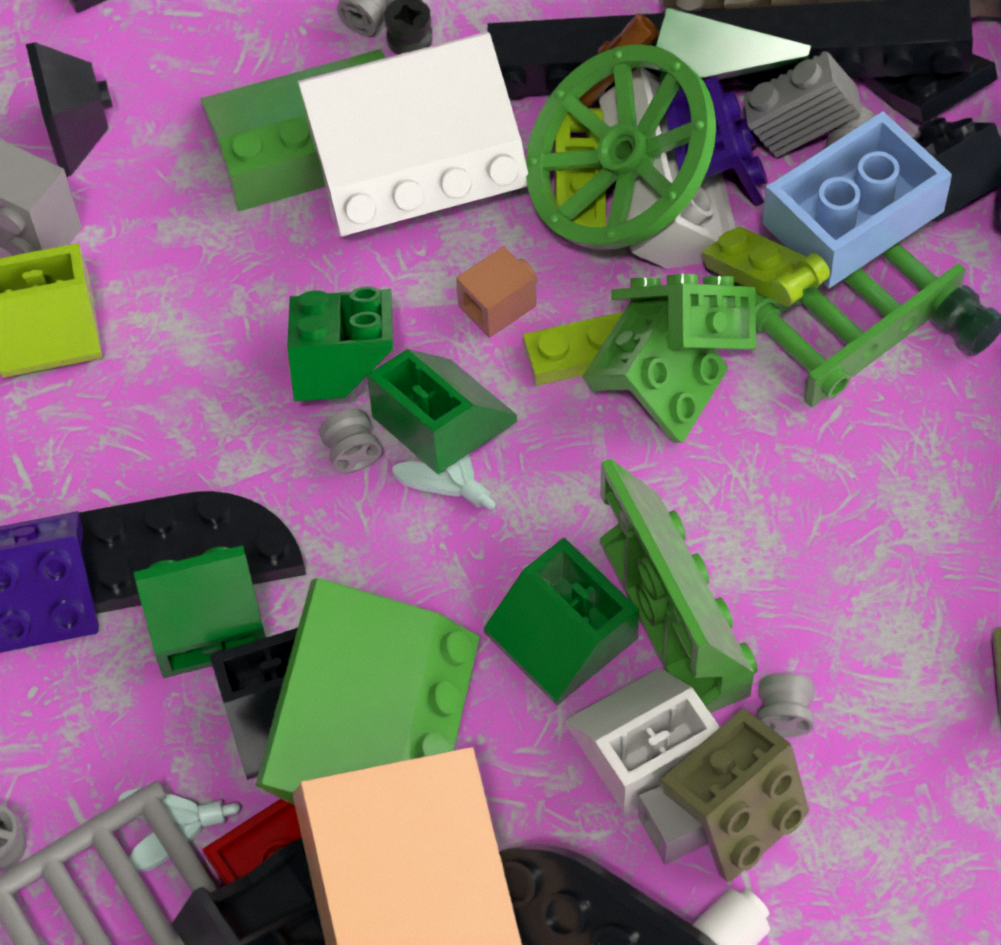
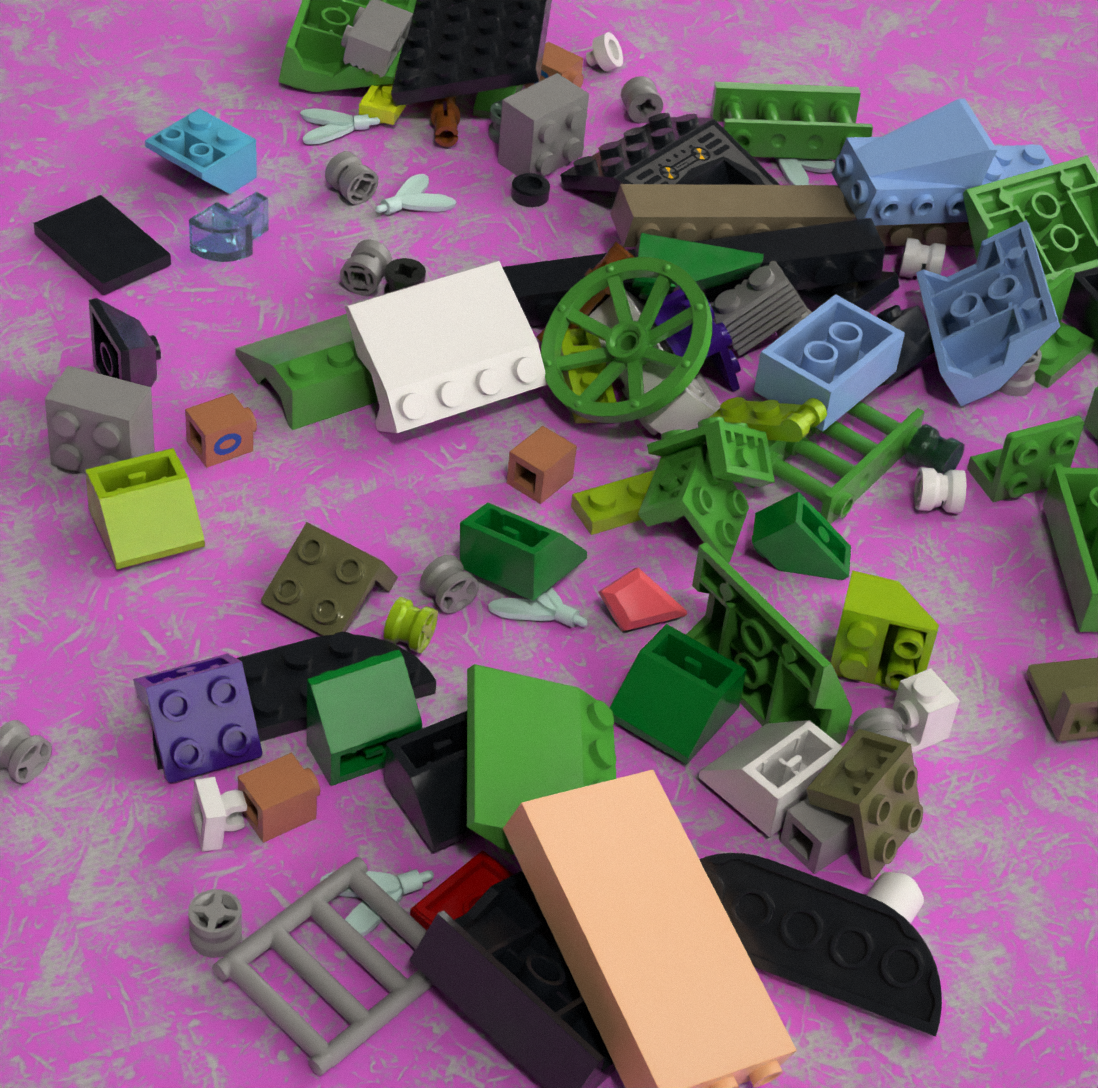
camera: 20 degrees left, 15 degrees down
(25, 704) = (215, 813): none -> white tile
(96, 692) = (279, 796): none -> nougat brick
(152, 210) = (220, 429): none -> nougat brick
(217, 421) = (325, 581): none -> olive bracket
(293, 490) = (410, 624): none -> lime wheel
(337, 340) = (421, 505): green slope -> none
(557, 488) = (639, 601): none -> coral piece
(770, 427) = (800, 540): none -> green slope
(816, 575) = (882, 633): none -> lime slope
(844, 677) = (925, 709): none -> white brick
(955, 374) = (939, 490): none -> white wheel

